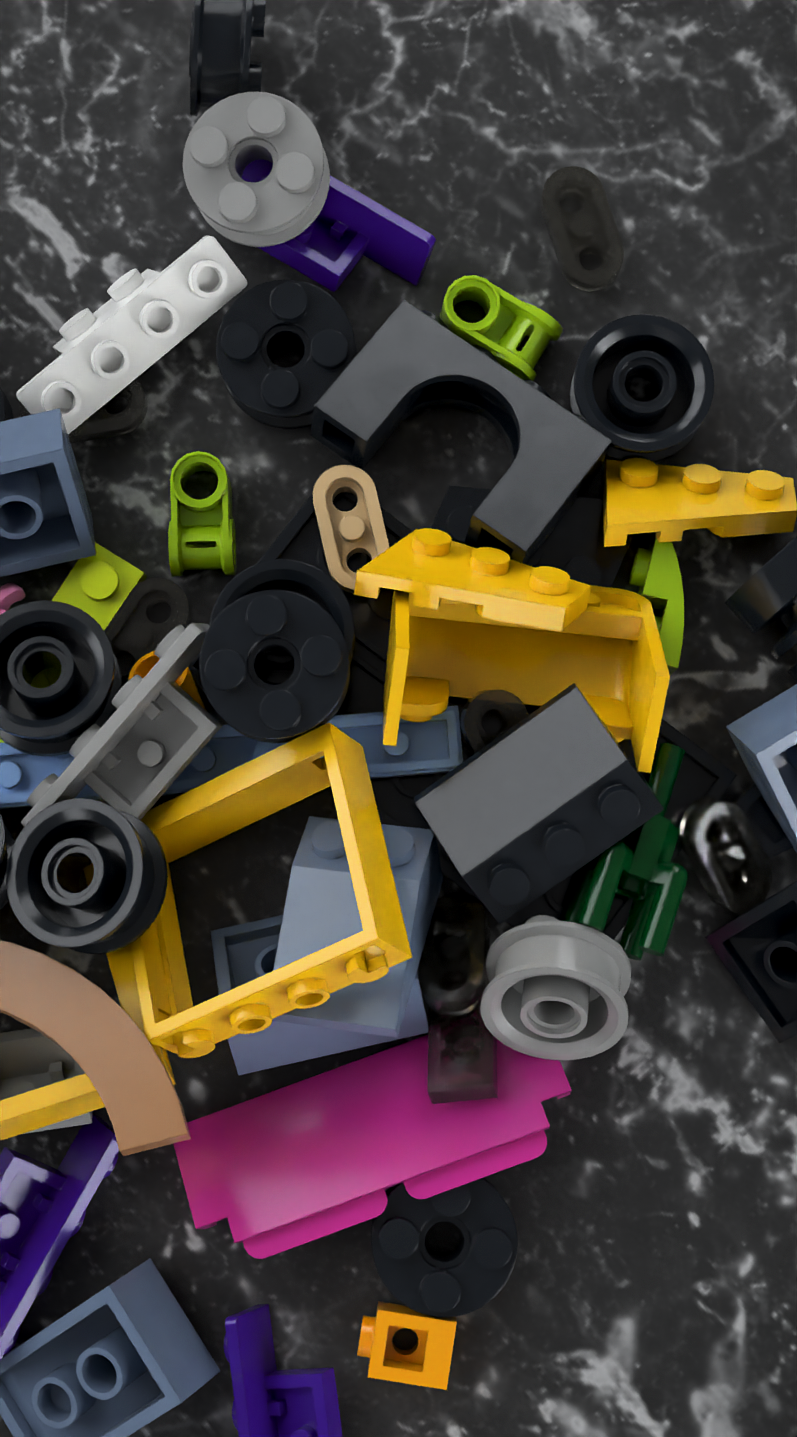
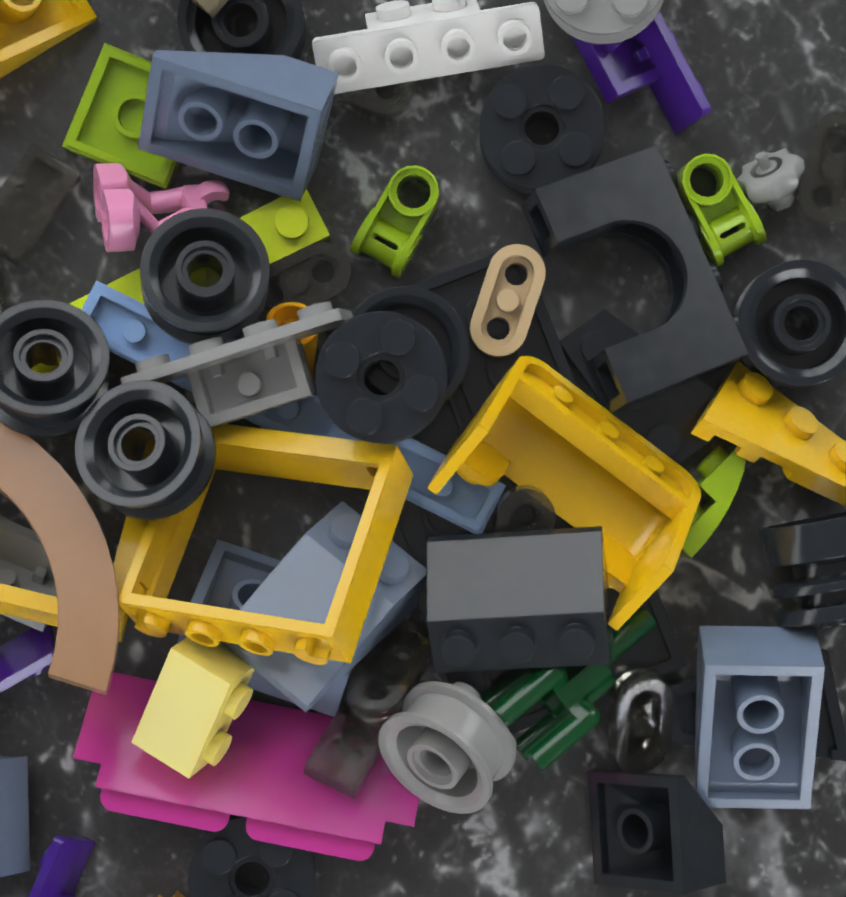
camera: 30 degrees right, 5 degrees up
(284, 1100) = (194, 706): none -> light yellow brick
(454, 573) = (560, 381): yellow wing -> none
(533, 269) = (772, 178): none -> light grey piece

